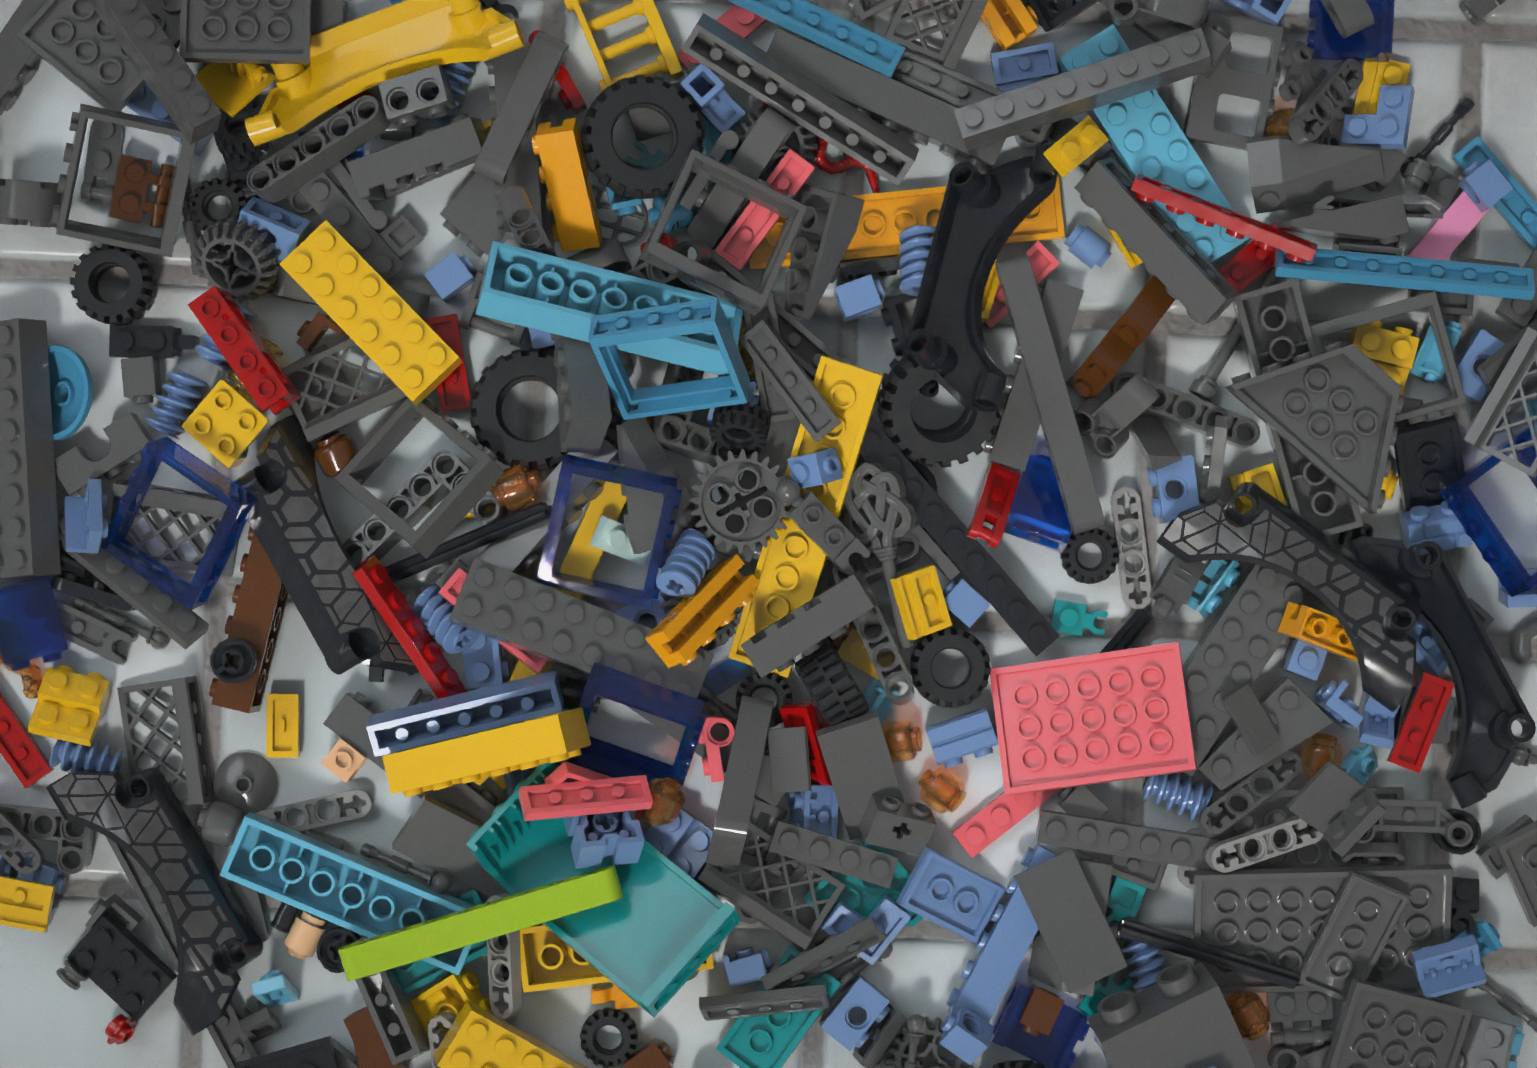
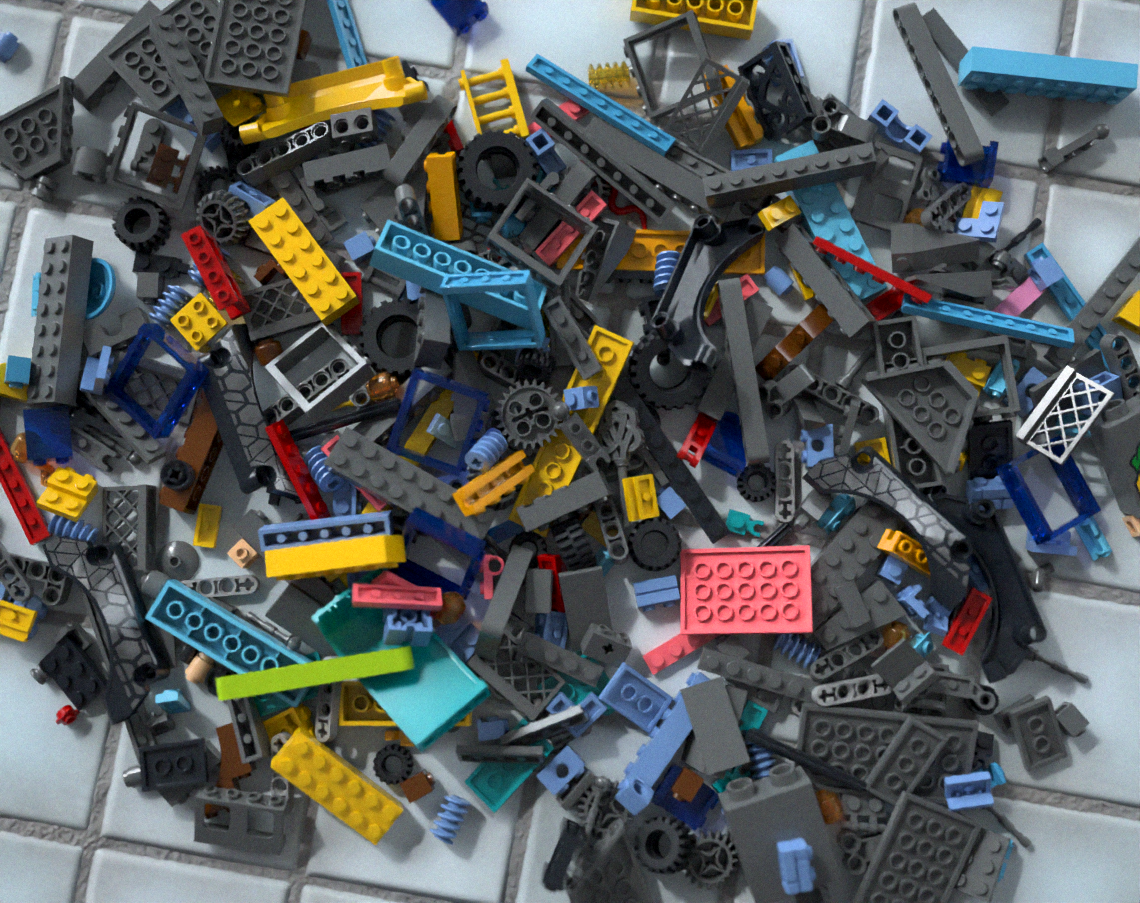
camera: 10 degrees right, 5 degrees down
(859, 298) = (625, 294): medium blue brick -> none
(902, 739) = (616, 589): clear orange head -> none
(942, 790) = (638, 626): clear orange head -> none

